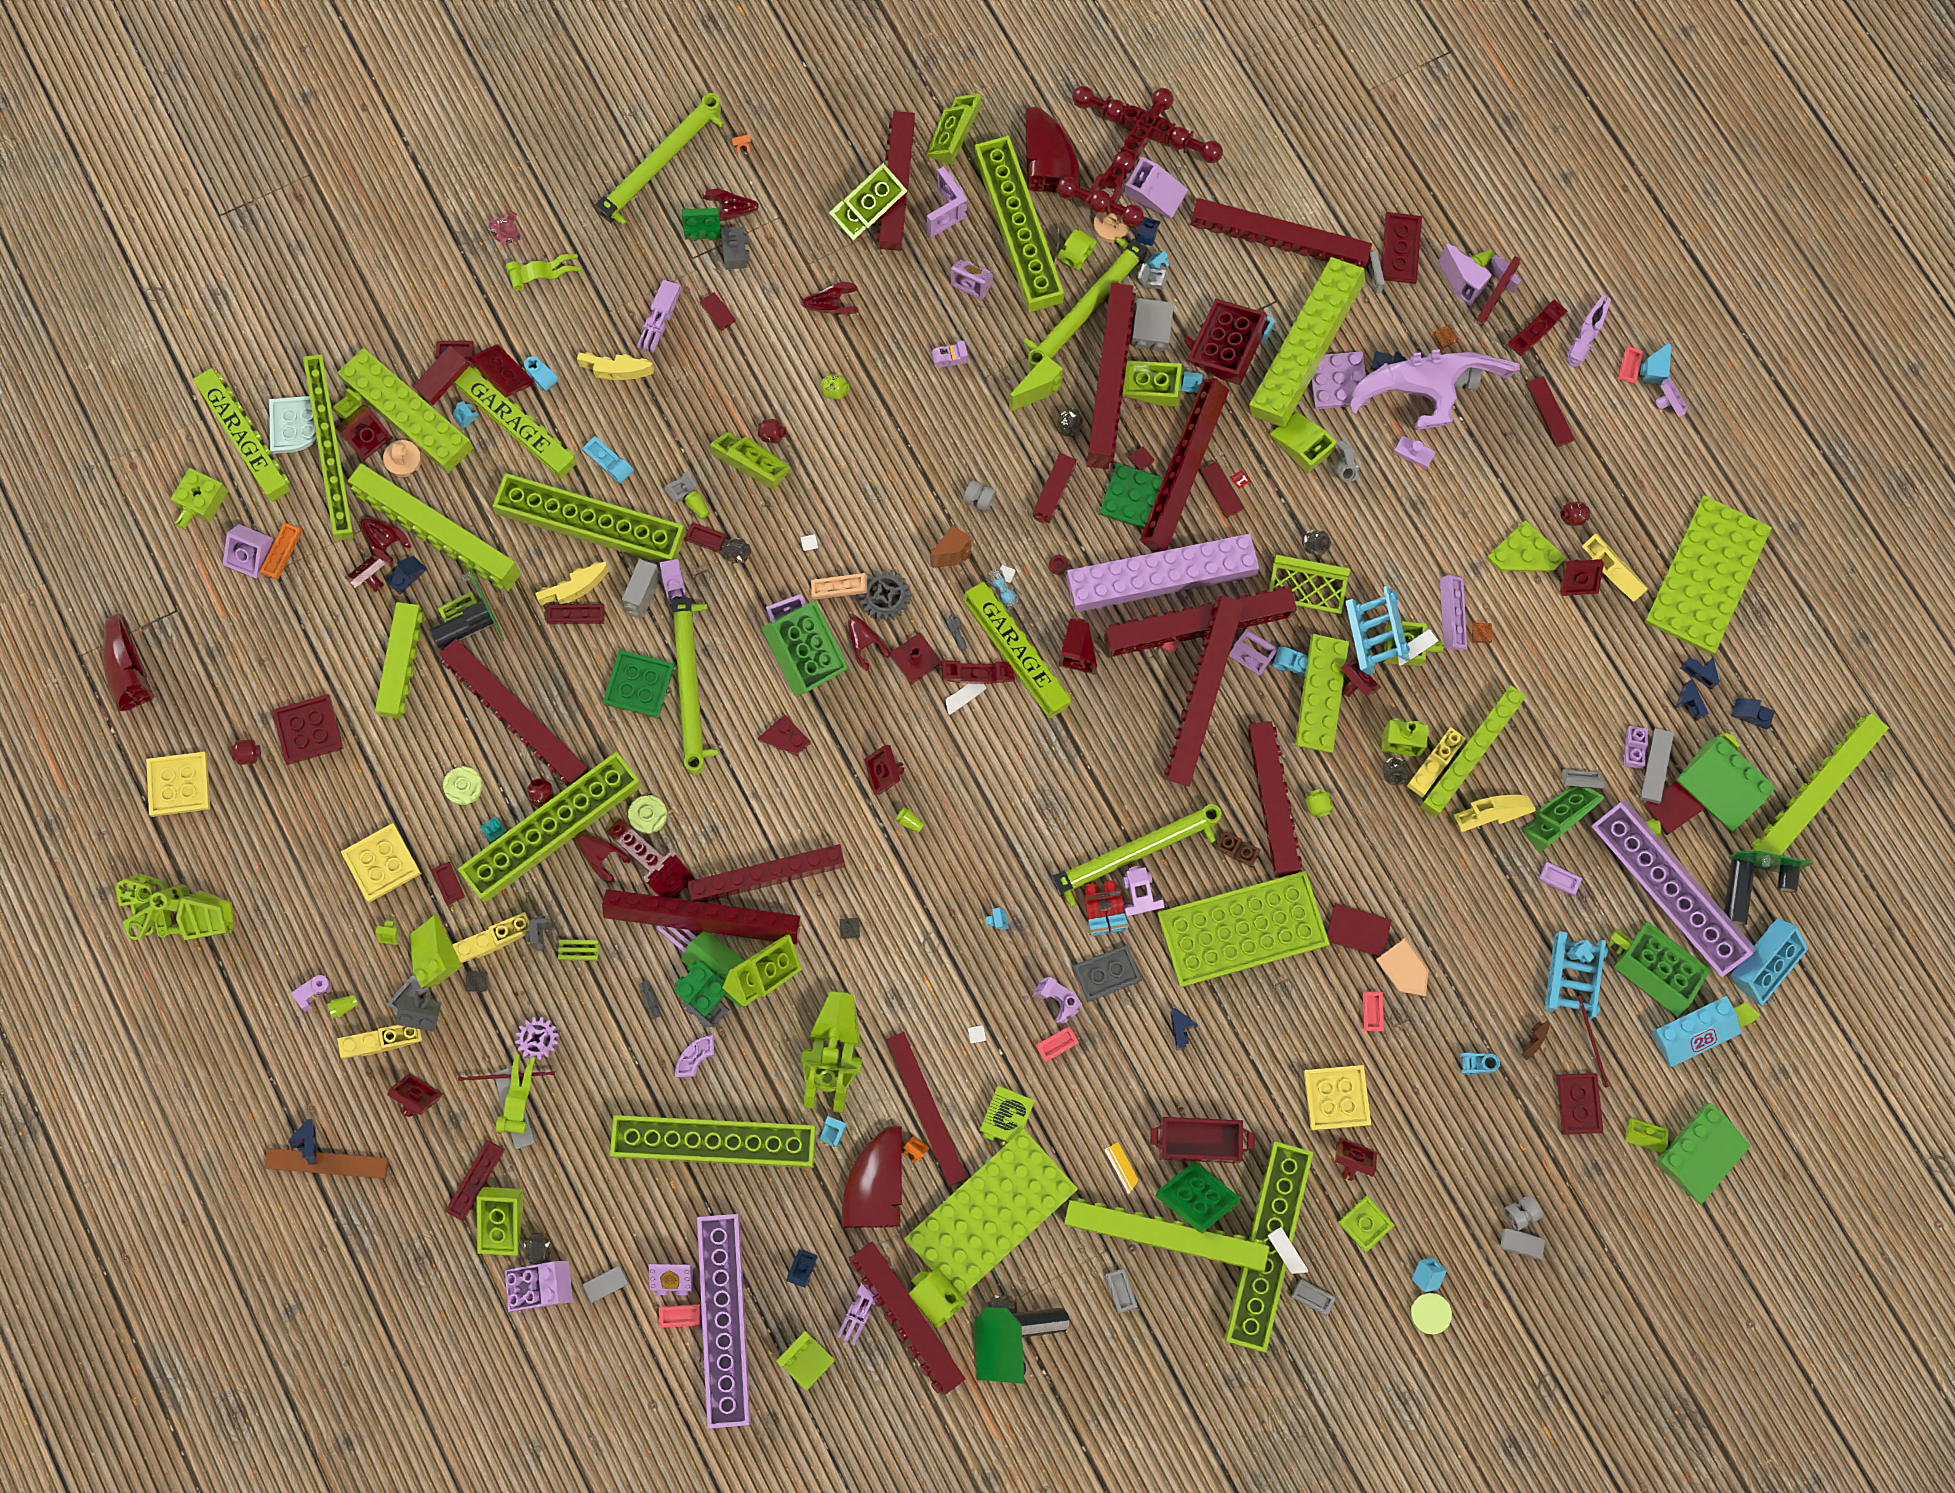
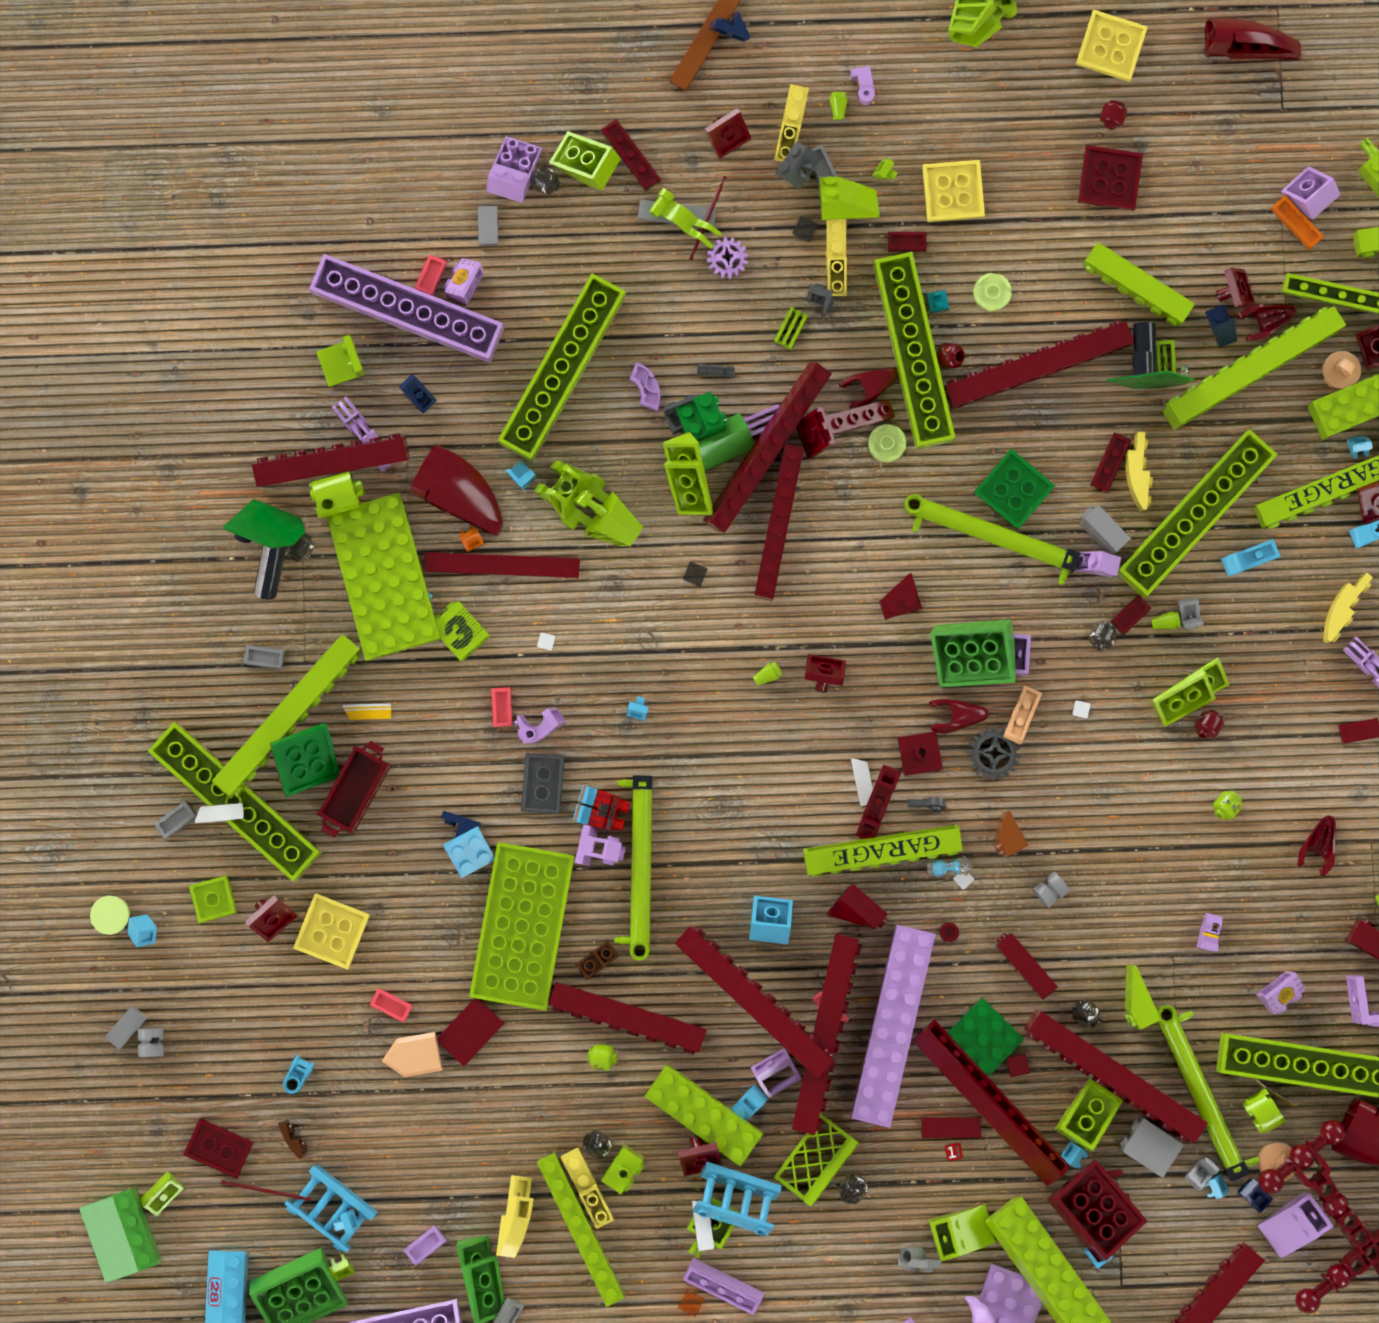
camera: 120 degrees right, 10 degrees up
(1125, 715) = (771, 920): none -> medium azure slope
(1202, 1007) = (469, 852): none -> medium azure plate

